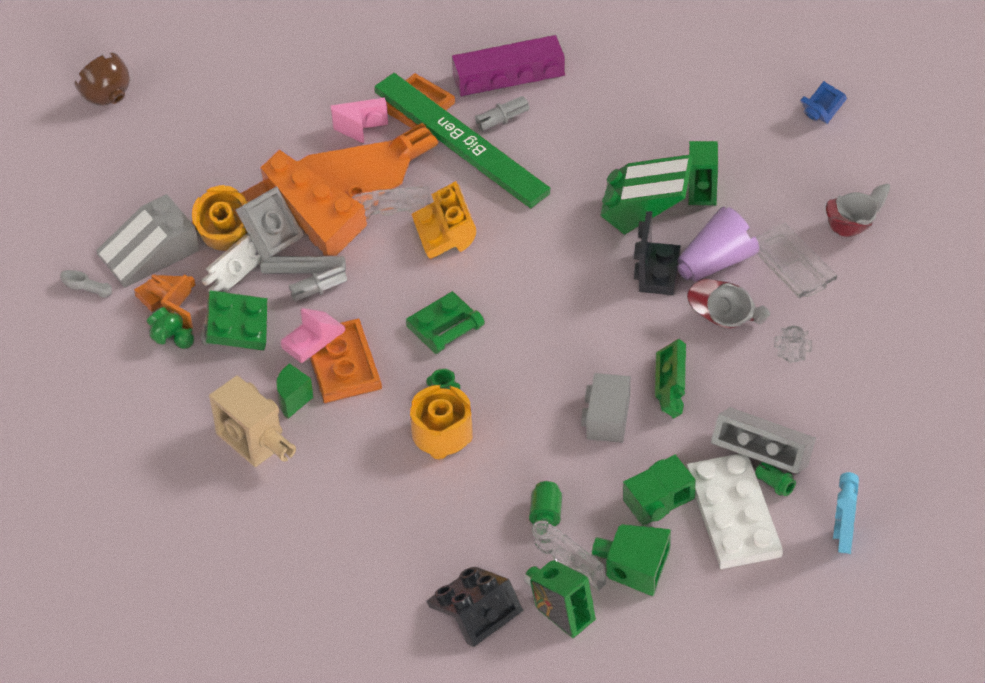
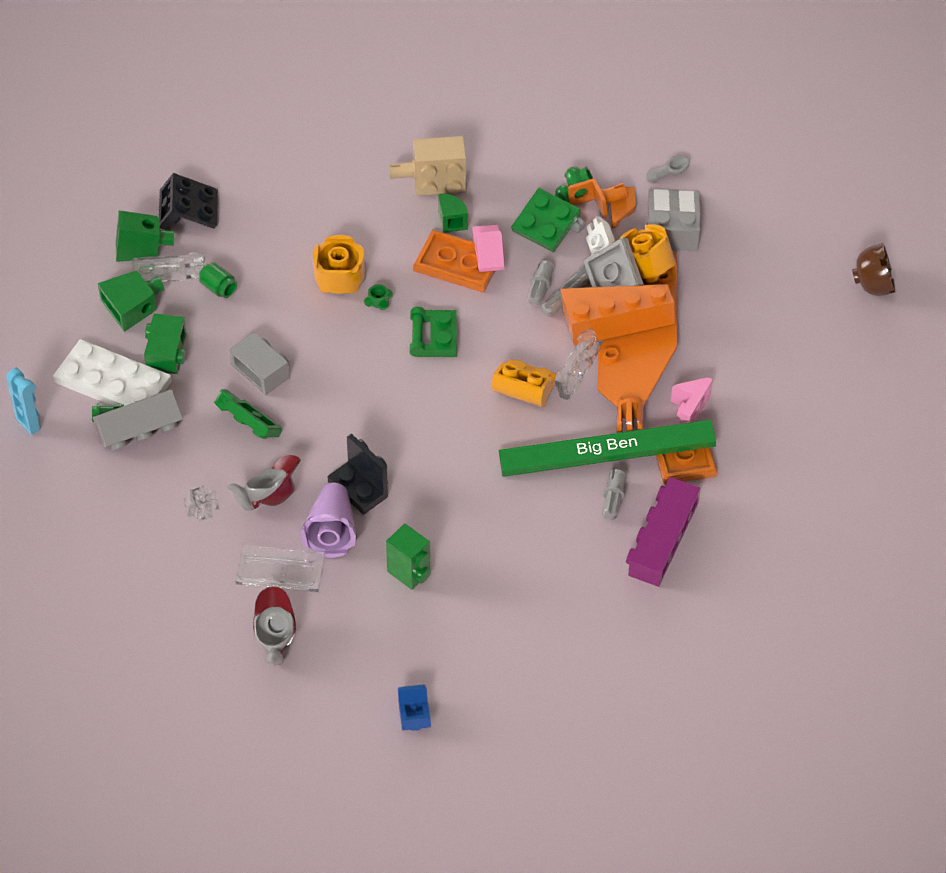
camera: 125 degrees right, 5 degrees up
(644, 187) = (422, 498): green slope -> none

